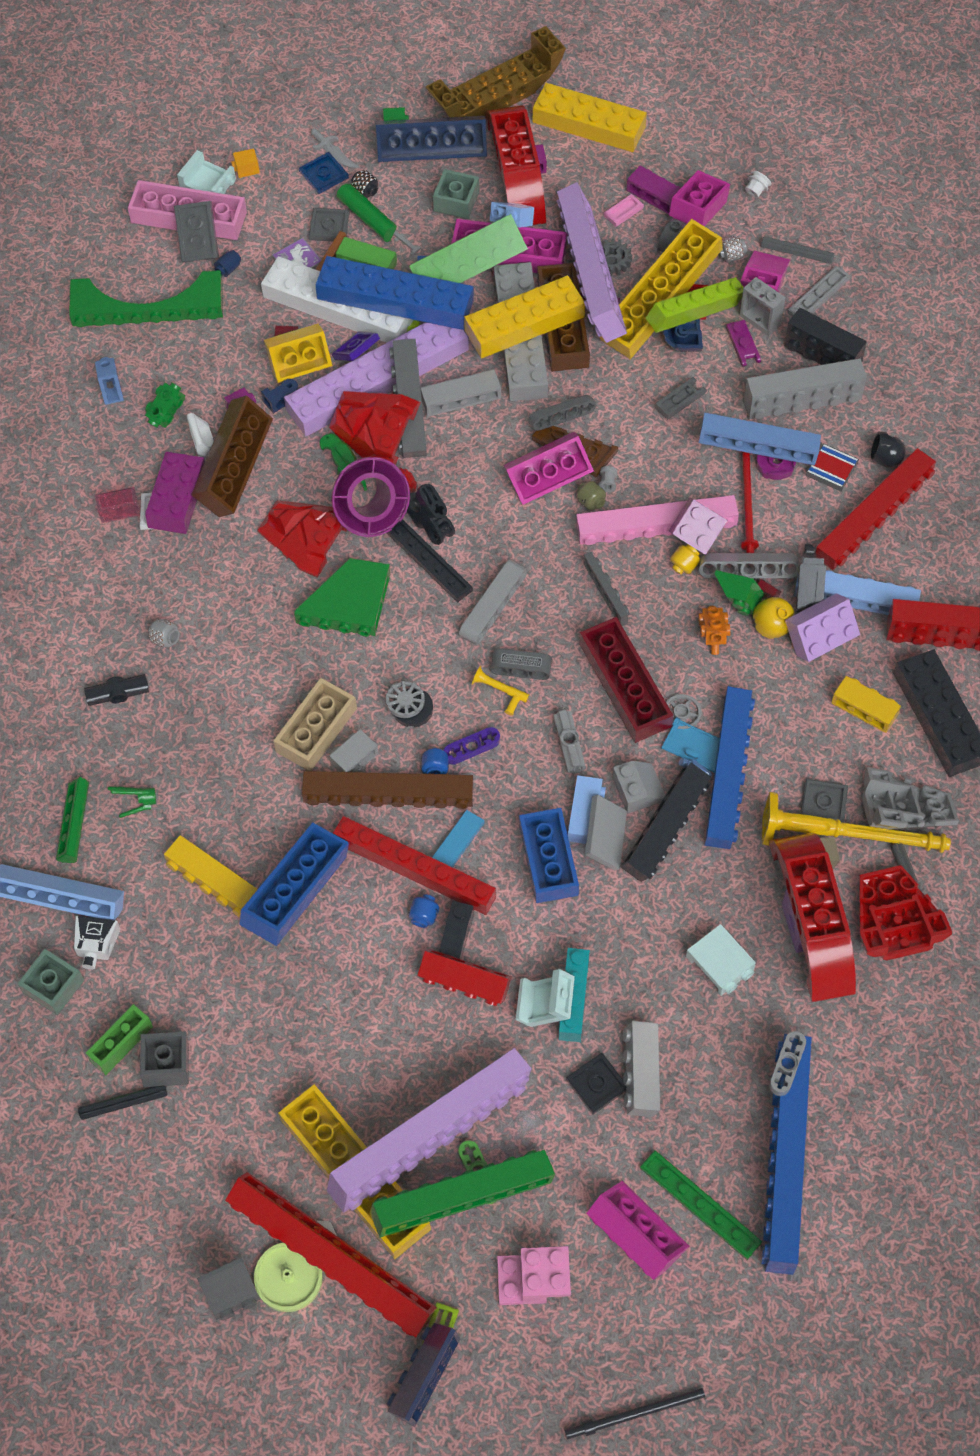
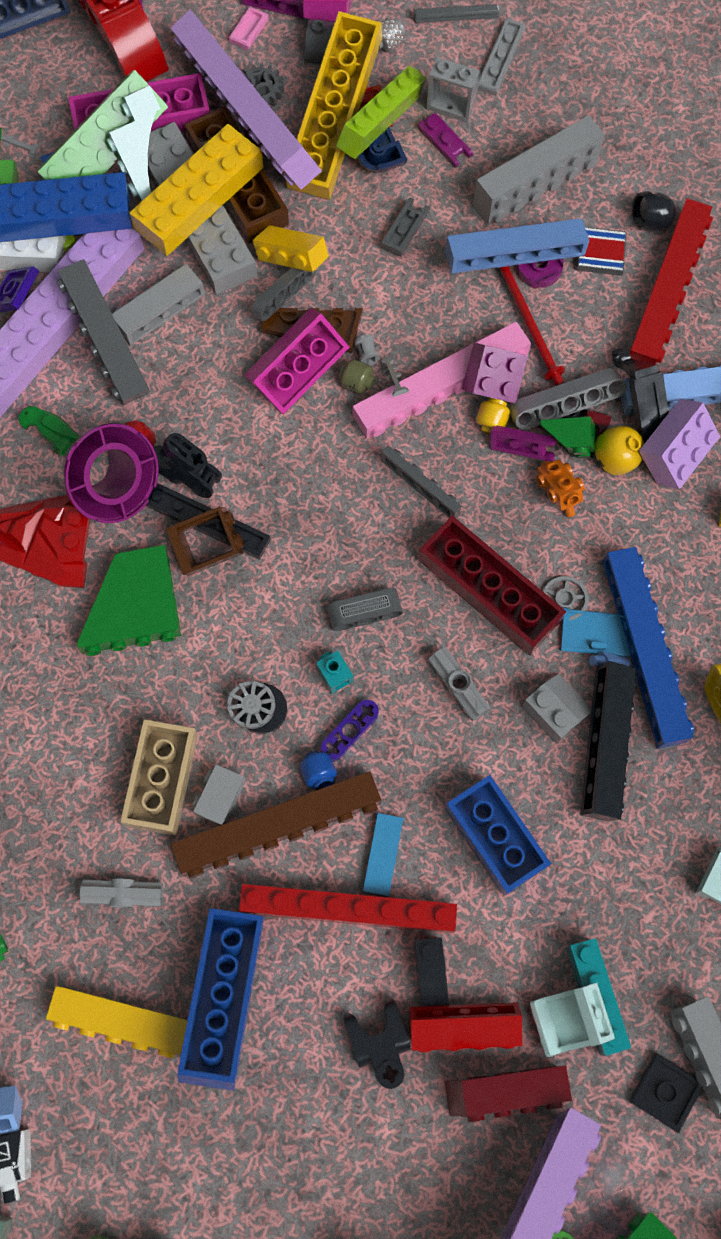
camera: 25 degrees left, 10 degrees up
(253, 794) = (121, 893): none -> light grey piece
(373, 422) = (75, 378): red wedge -> none
(396, 968) = (380, 1049): none -> black piece
(401, 571) = (182, 548): none -> reddish brown window
(423, 911) = (382, 961): blue head -> none
(456, 194) = (54, 67): sand green brick -> none
(475, 1030) = (508, 1092): none -> dark red wedge
(478, 699) = (334, 671): none -> teal brick
(489, 263) = (132, 139): none -> light aqua arch
(493, 602) = (301, 545): light grey beam -> none
(516, 694) = (366, 646): yellow piece -> none
(521, 213) = (117, 70): light blue slope -> none
(579, 383) = (291, 248): none -> yellow brick
(580, 814) = (513, 760): light blue brick -> none
(606, 832) = (548, 781): light grey tile -> none
(620, 494) = (388, 362): none -> light grey piece
(697, 585) = (522, 443): none -> magenta hinge
(767, 268) = (434, 43): dark pink slope -> none
(822, 340) = (534, 108): black brick -> none

